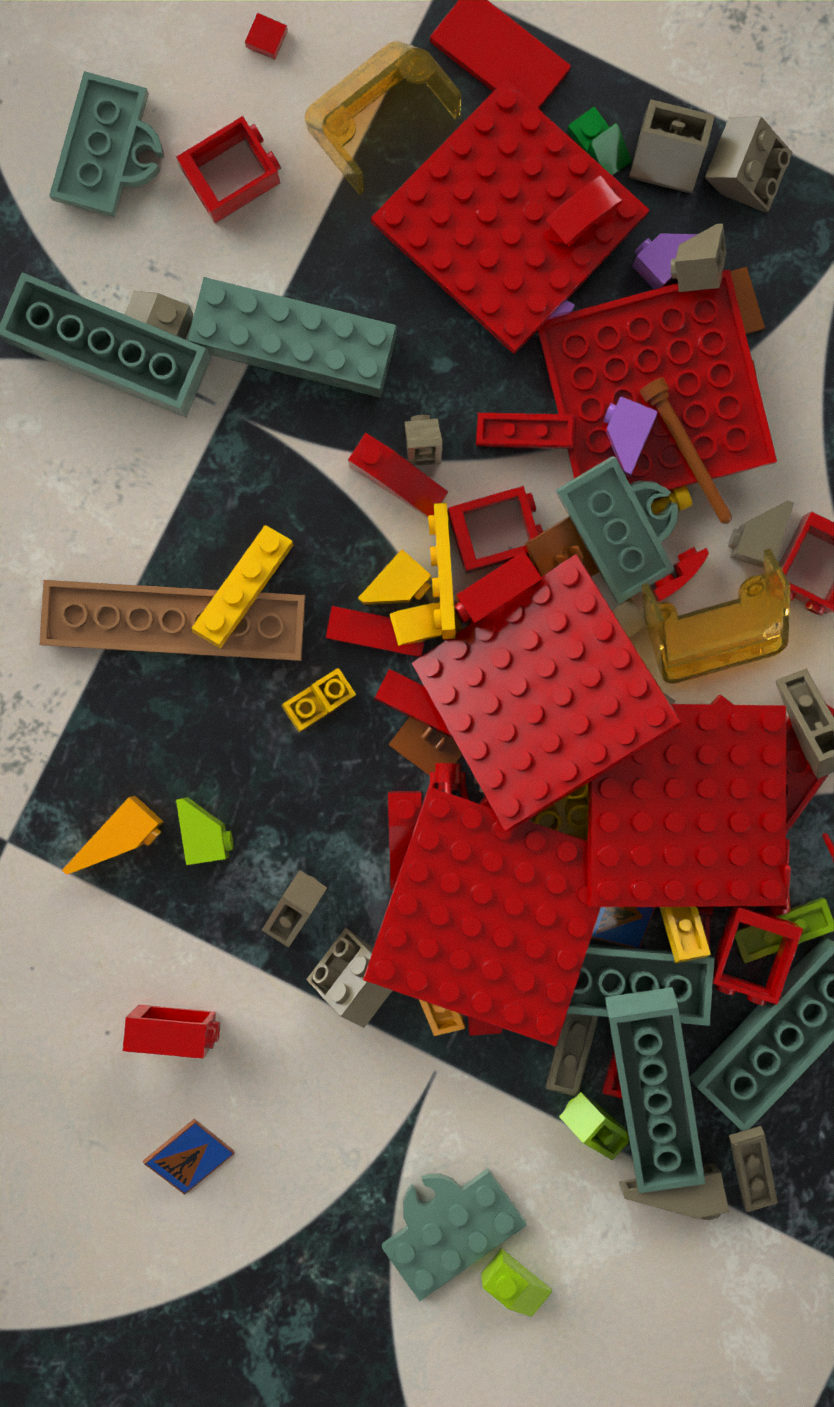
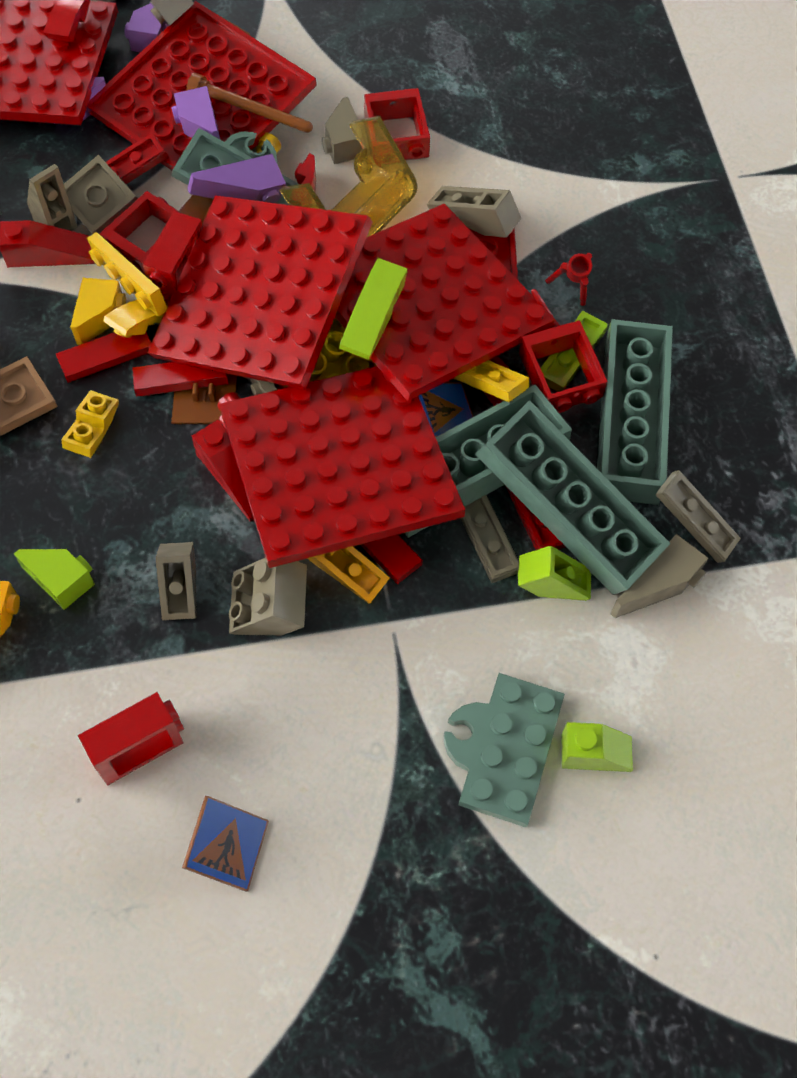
camera: 40 degrees left, 25 degrees down
(476, 452) = (98, 195): none -> dark tan plate
(618, 811) = (373, 308): none -> lime slope
(624, 553) = (249, 179): none -> medium lavender slope

